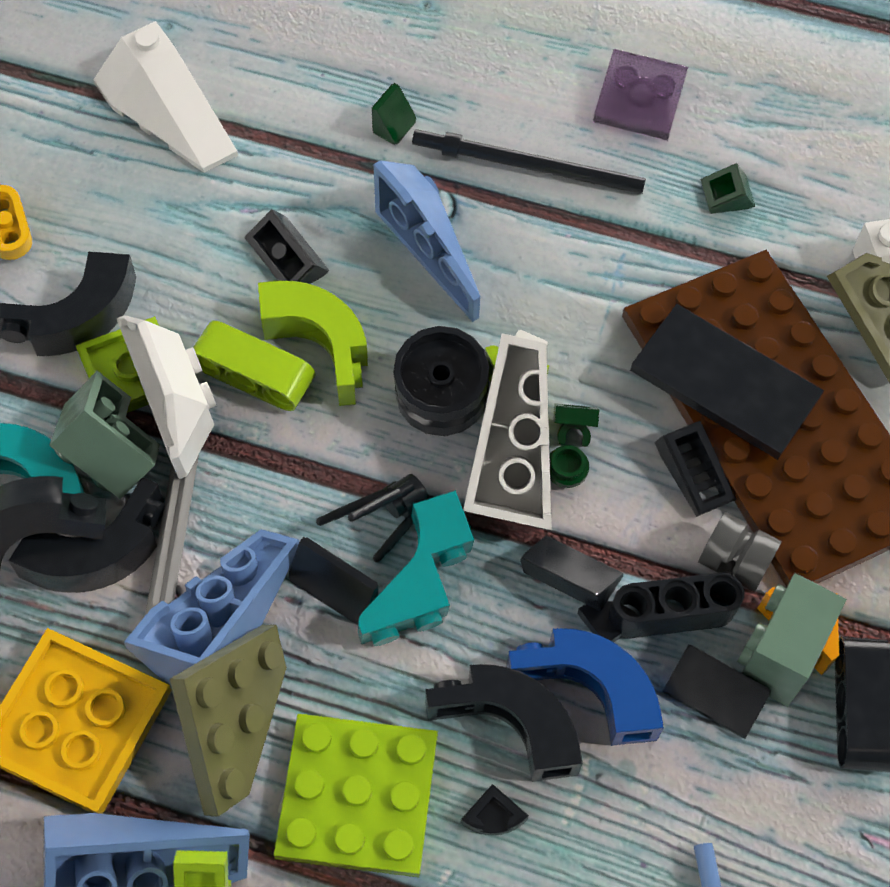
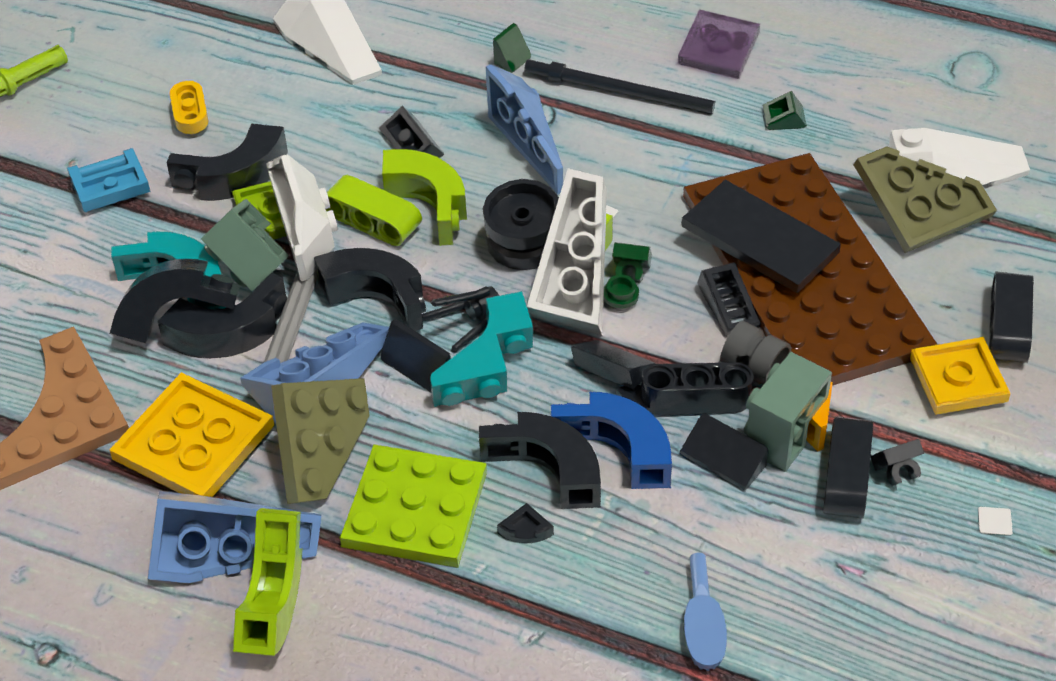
camera: 10 degrees right, 15 degrees down
(269, 462) = (375, 274): none -> black arch

